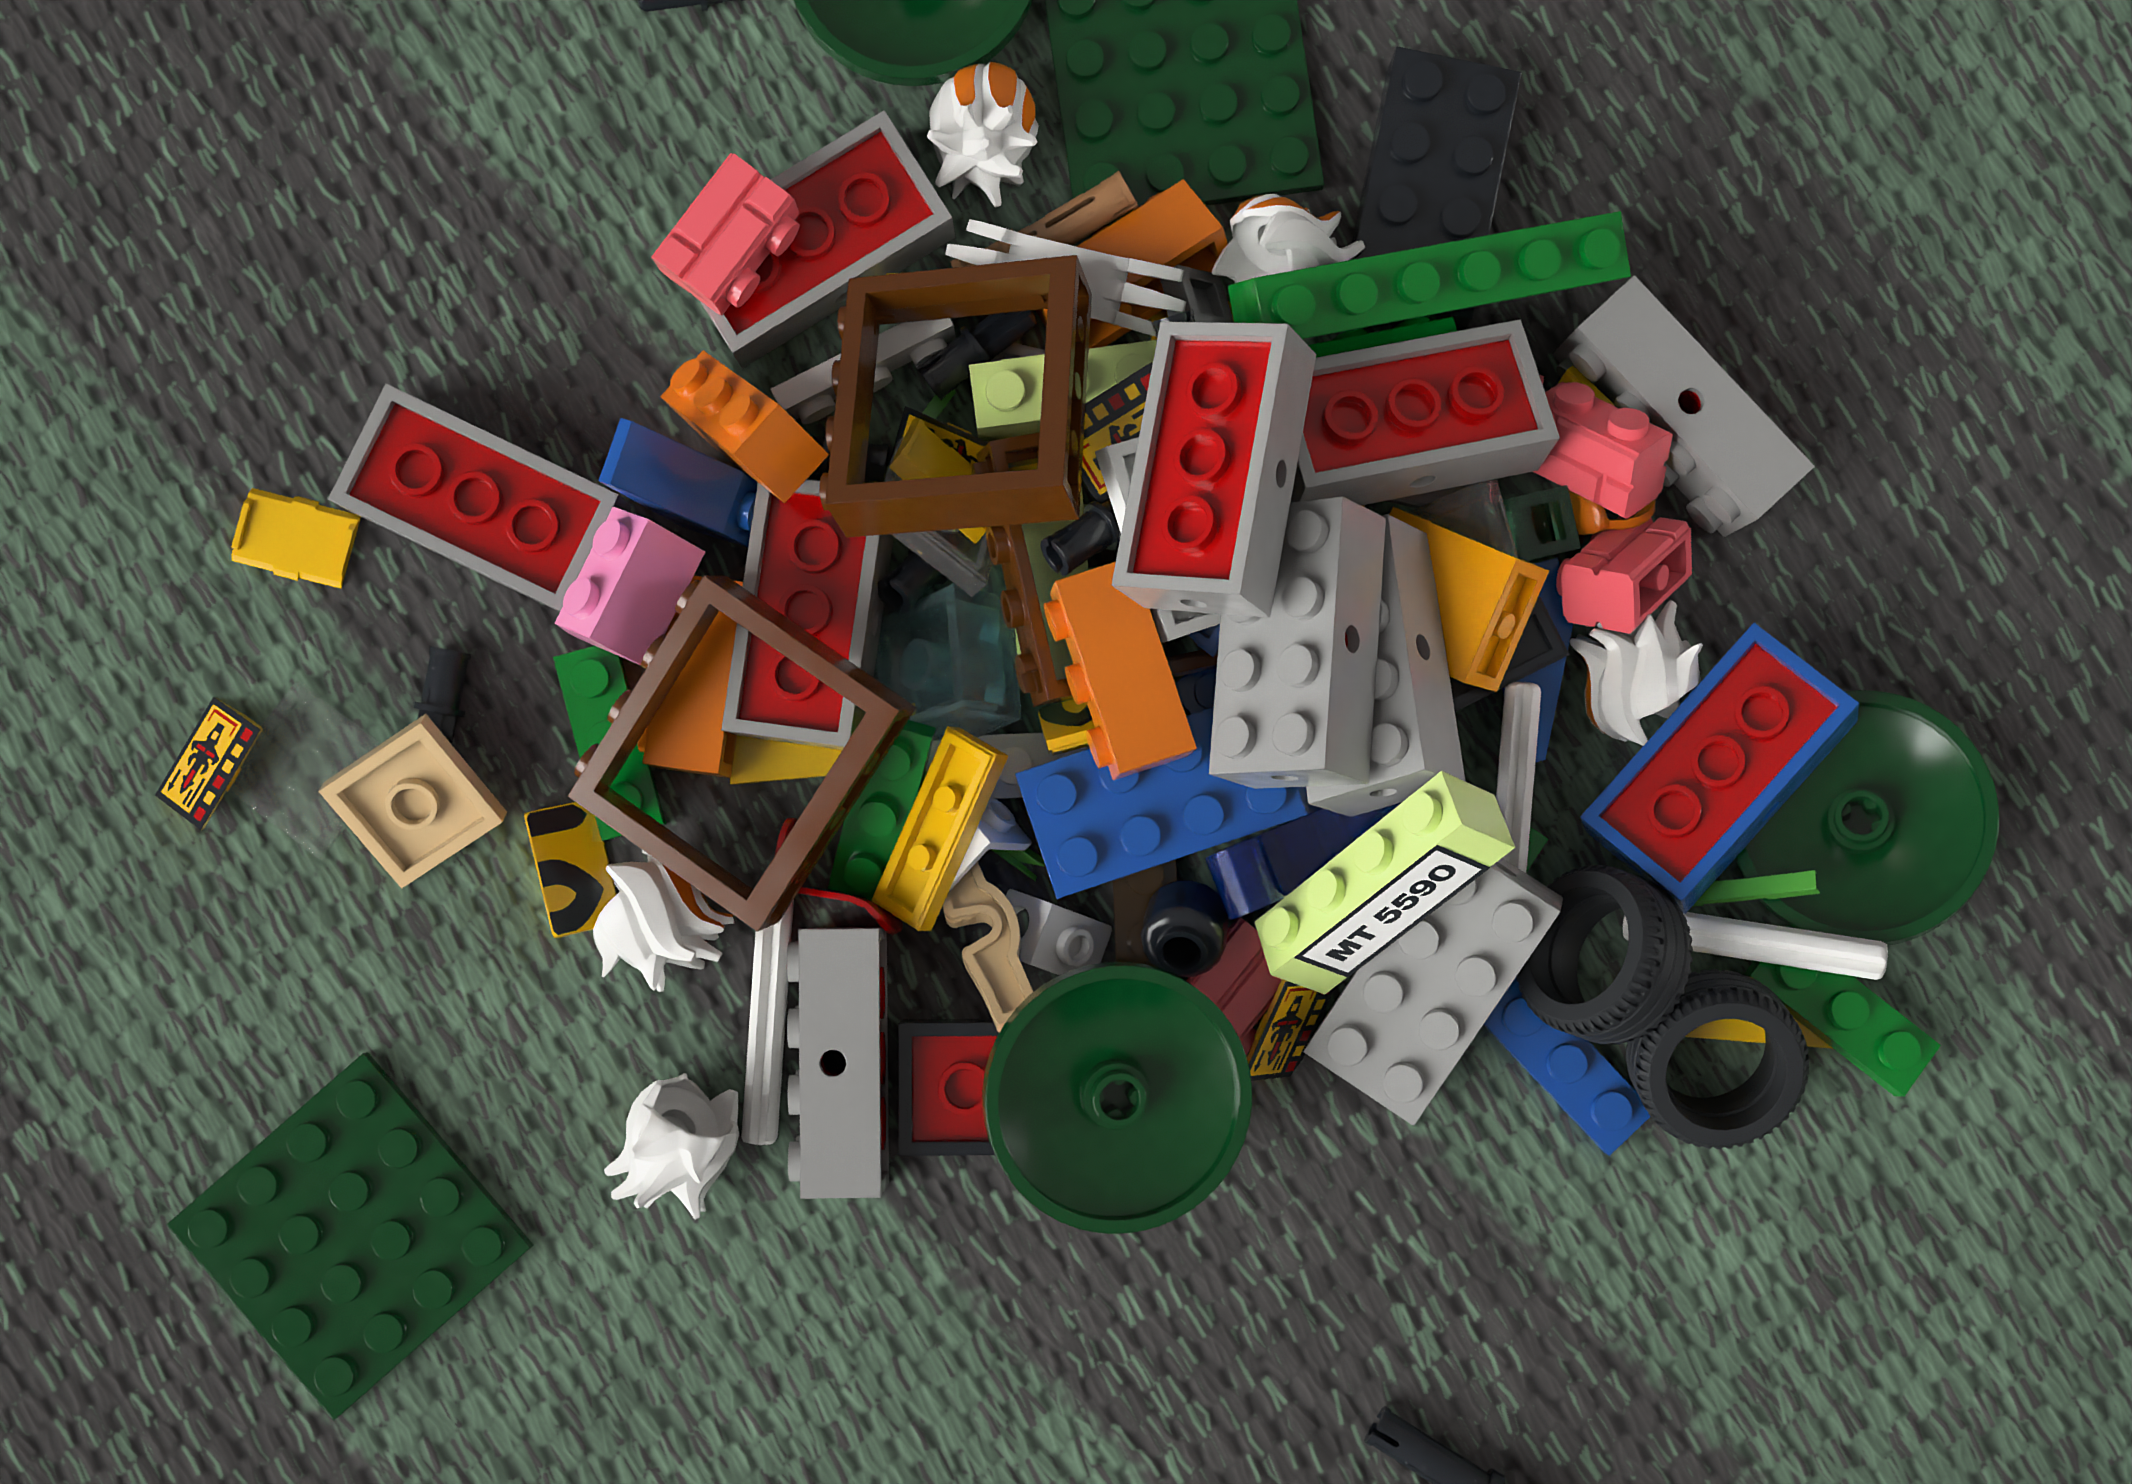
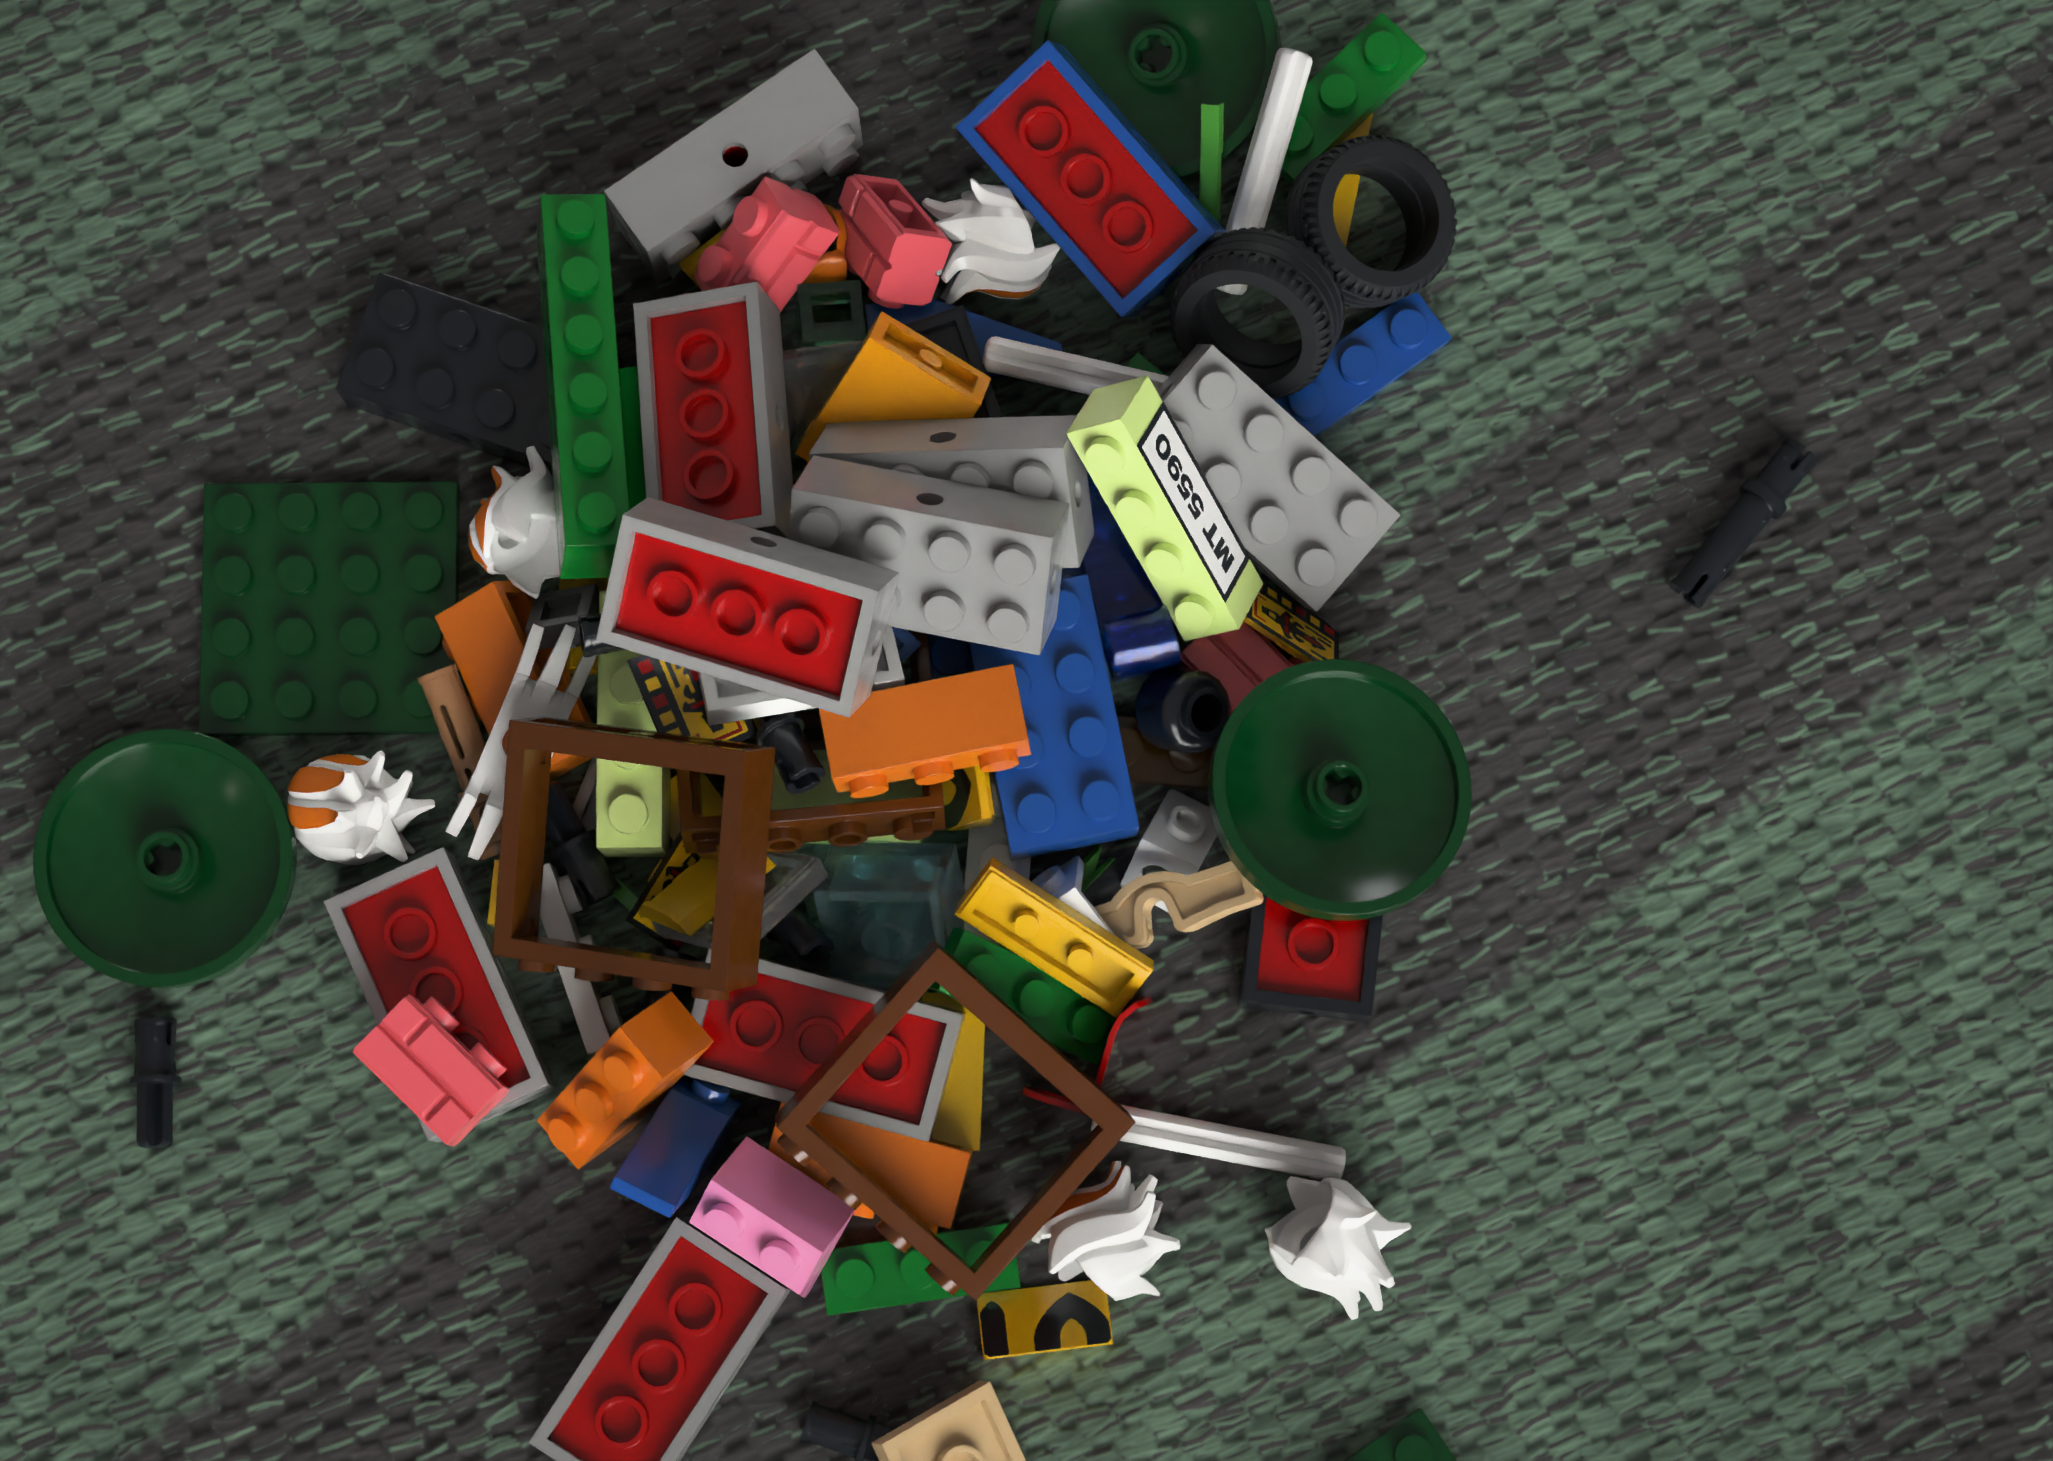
camera: 80 degrees left, 5 degrees down
(840, 1109) = (1317, 1064): light grey brick -> none

